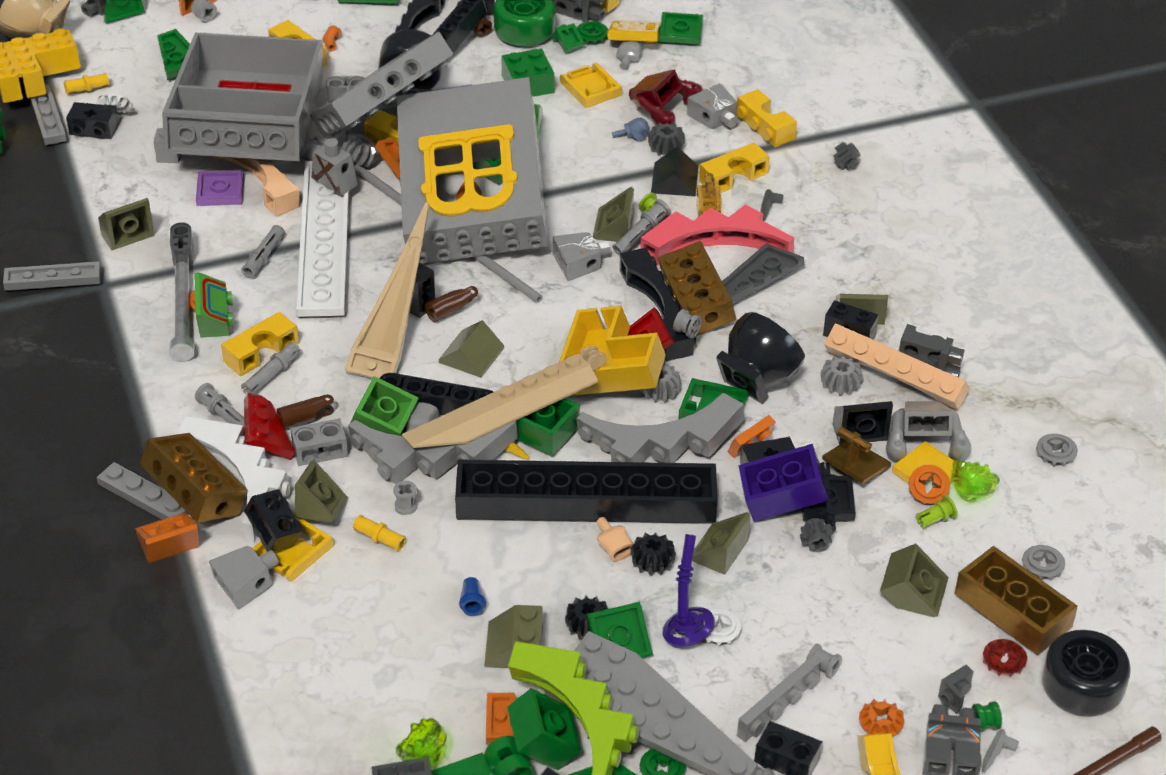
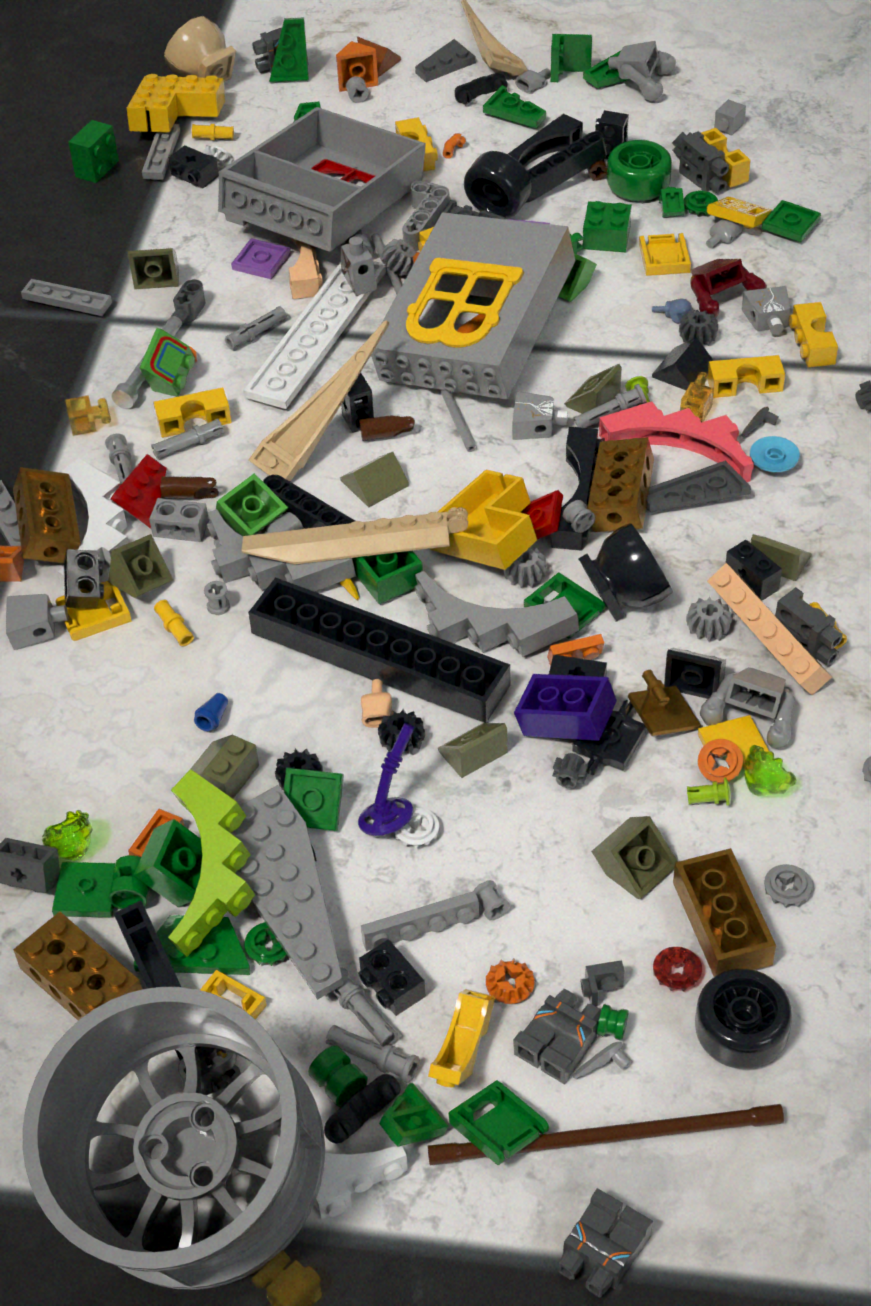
camera: 30 degrees right, 5 degrees up
(153, 378) = (83, 415): none -> clear yellow brick
(349, 106) = (474, 182): light grey brick -> none
(802, 225) = (774, 454): none -> medium azure dish

